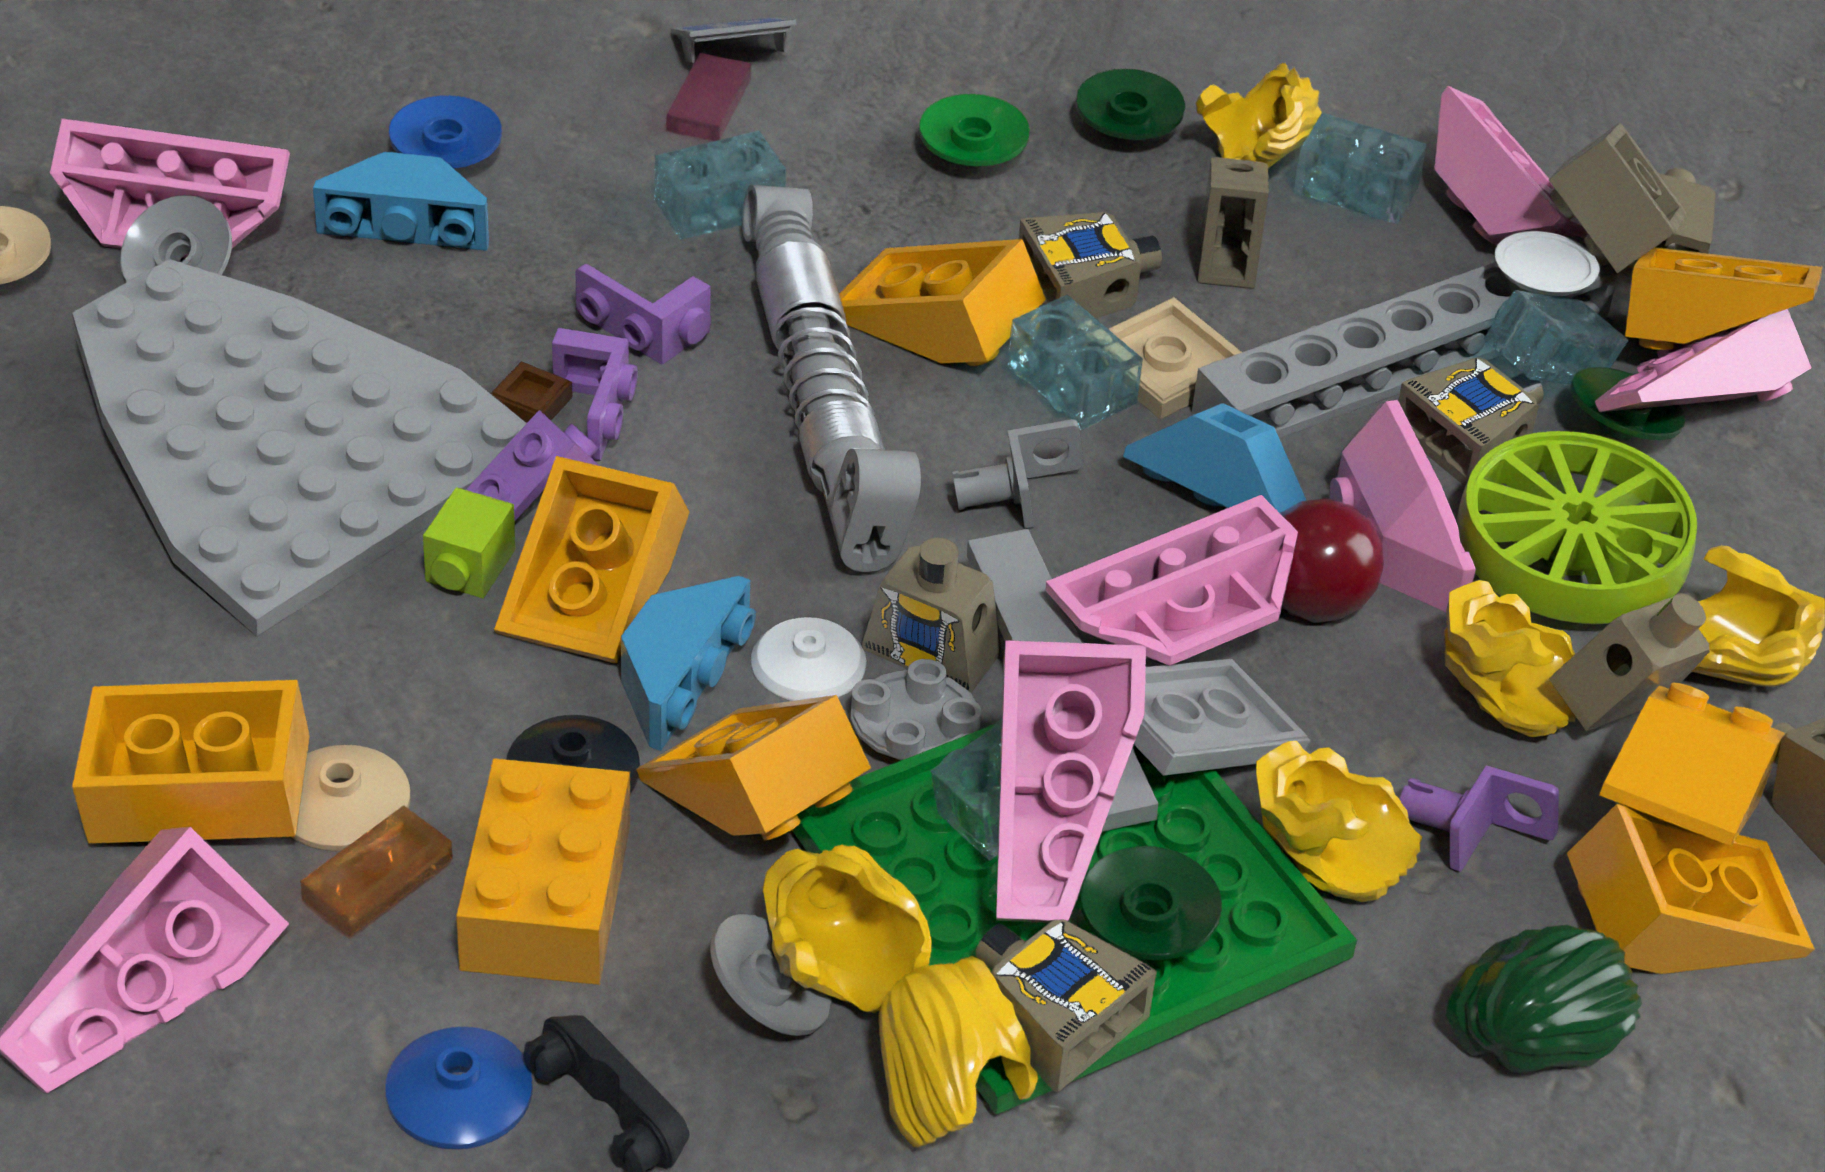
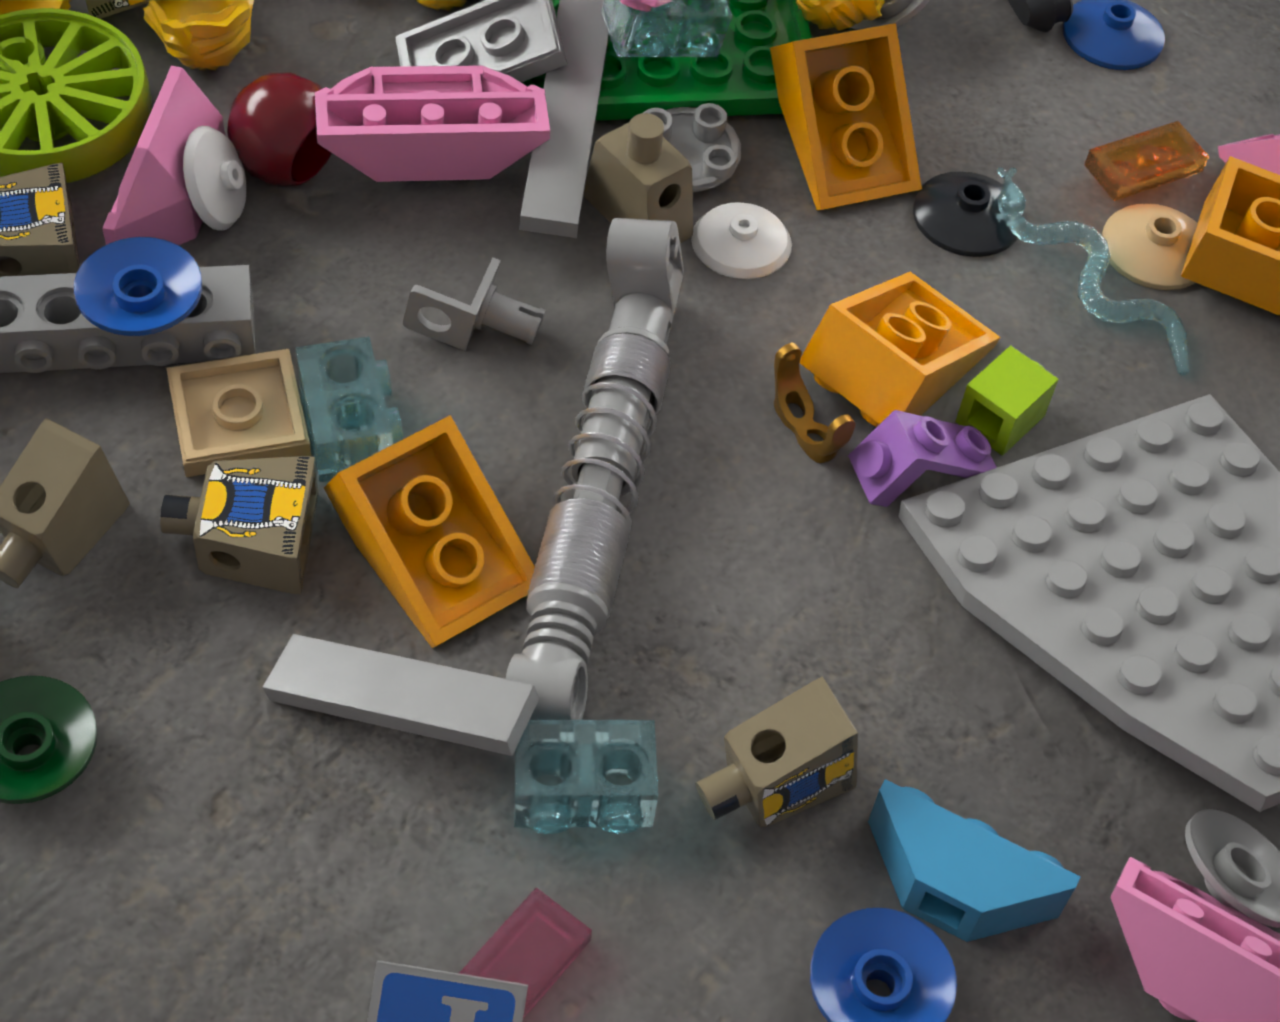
camera: 160 degrees left, 10 degrees up
(410, 718) = (1012, 205): none -> clear light blue animal
(533, 390) = (892, 573): reddish brown tile -> none
(544, 872) = (1024, 107): light orange brick -> none
(563, 213) = (785, 758): none -> dark tan torso
(598, 368) = (816, 556): medium lavender bracket -> none
(627, 459) = (791, 389): none -> pearl gold cap
(652, 328) = (738, 583): medium lavender bracket -> none
(679, 649) = (854, 243): dark azure slope -> none
(884, 179) = (402, 694): none -> light grey tile
(974, 130) = (231, 735): green dish -> none
(1221, 459) = (299, 259): dark azure slope -> none
(1299, 326) = (138, 286): none -> blue dish
(1345, 474) = (214, 177): none -> white piece

